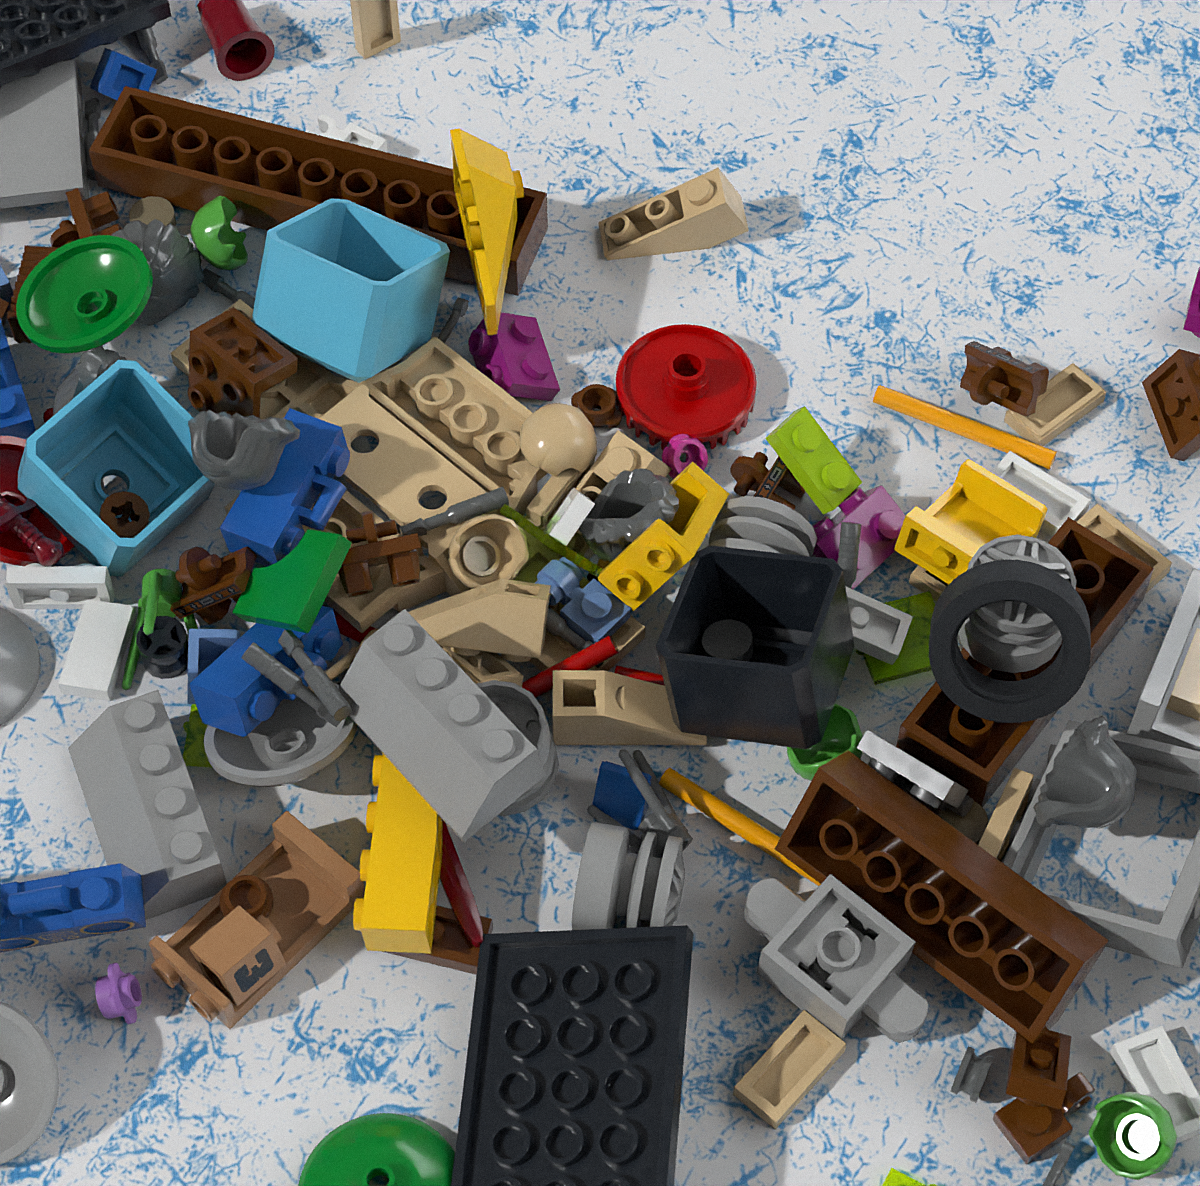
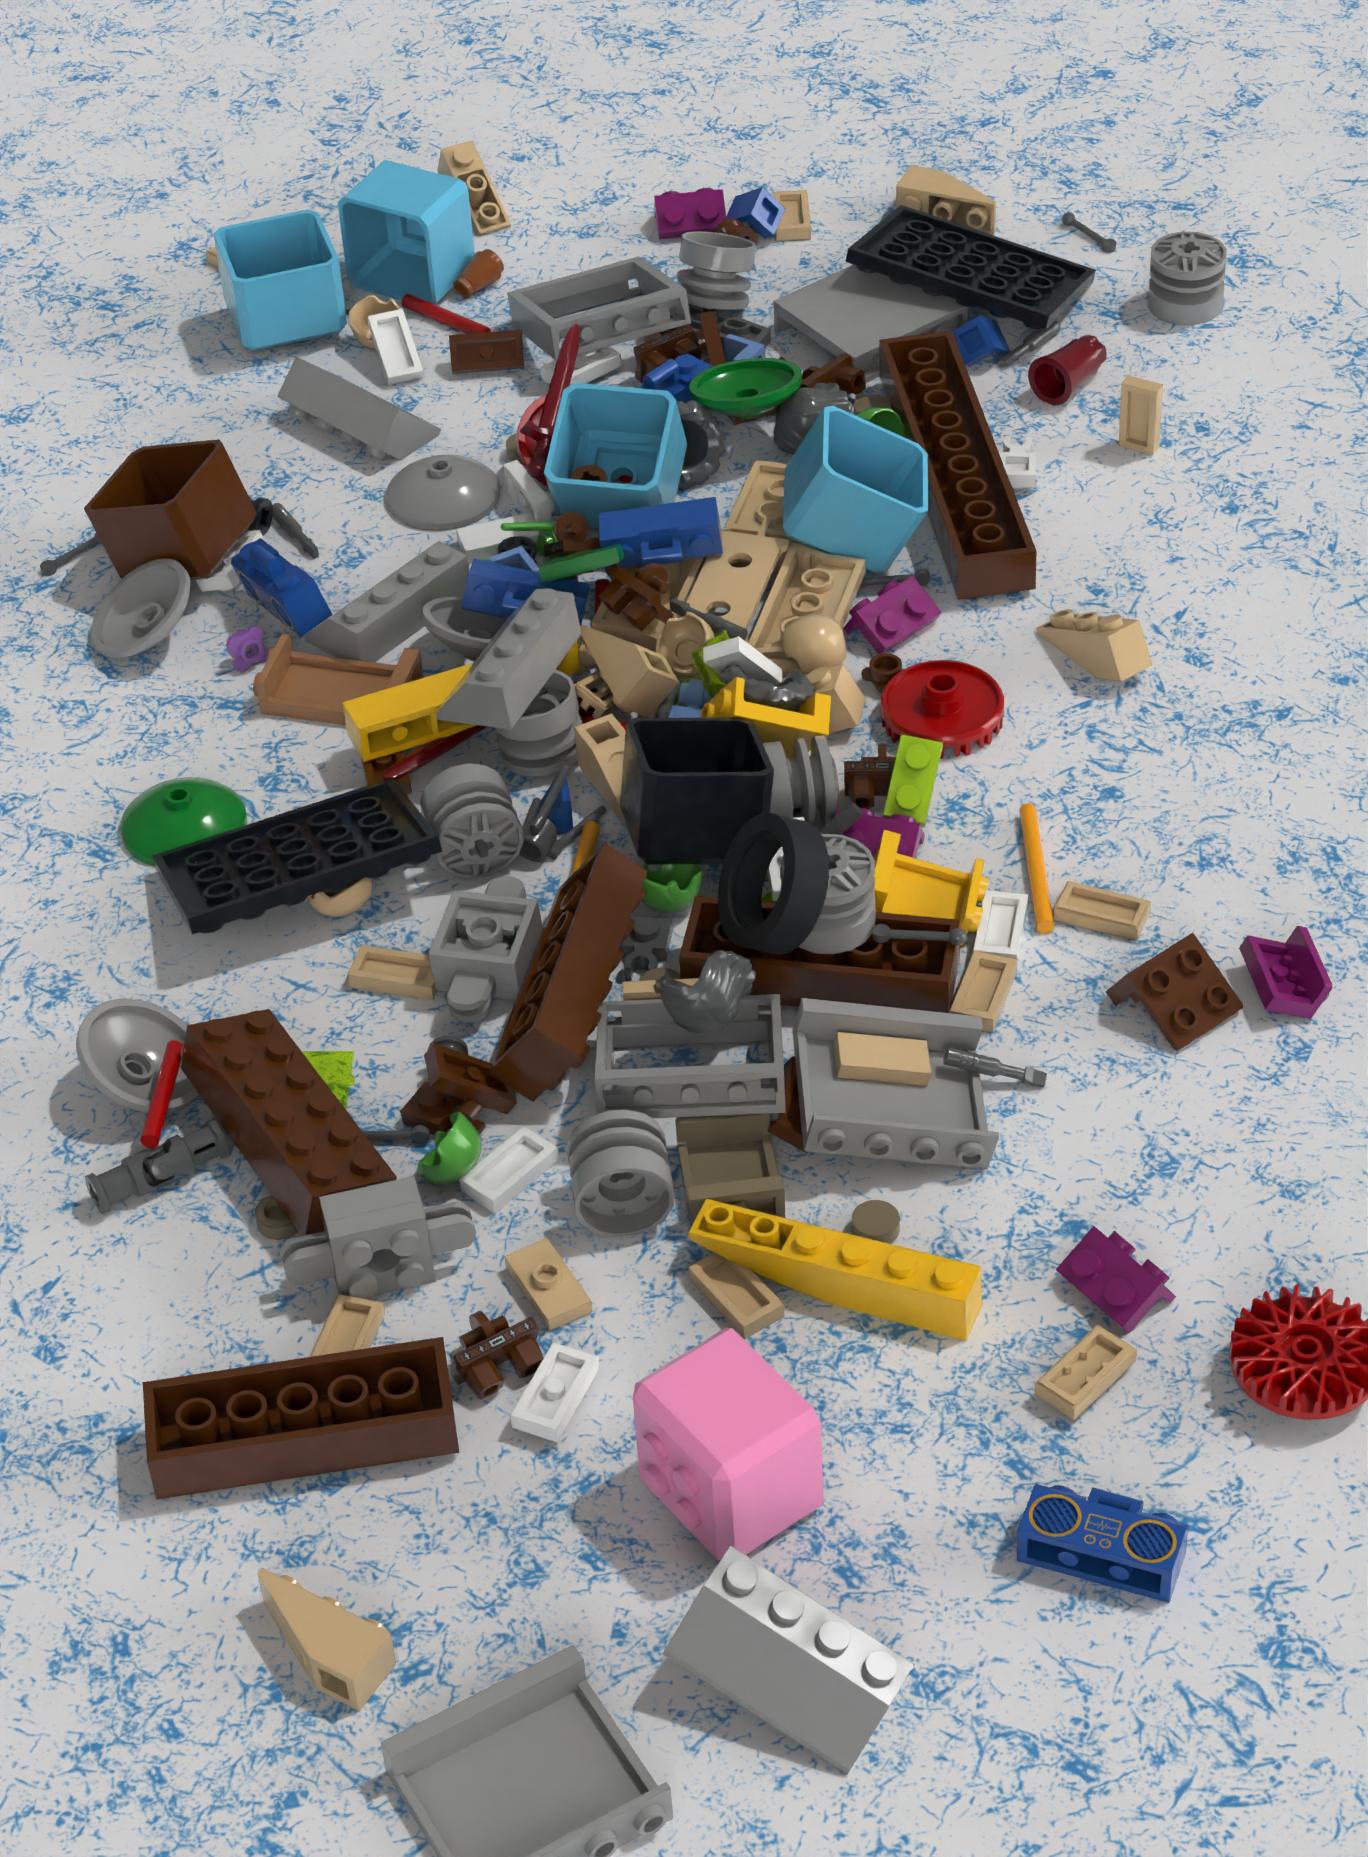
camera: 65 degrees right, 15 degrees down
(234, 364) = (753, 474): reddish brown bracket -> none
(239, 449) = (649, 476): dark grey hair -> none
(239, 954) = (302, 677): medium nougat brick -> none
(248, 892) = (349, 669): reddish brown plate -> none
(285, 679) = (502, 591): dark grey piece -> none
(316, 677) = (510, 603): dark grey piece -> none
(488, 212) = (967, 517): yellow wedge -> none
(690, 447) = (866, 722): dark pink plate -> none
(906, 770) = (661, 921): plate -> none
(1001, 379) = (1090, 859): reddish brown hips -> none
(1102, 531) = (882, 933): none -> dark grey hinge

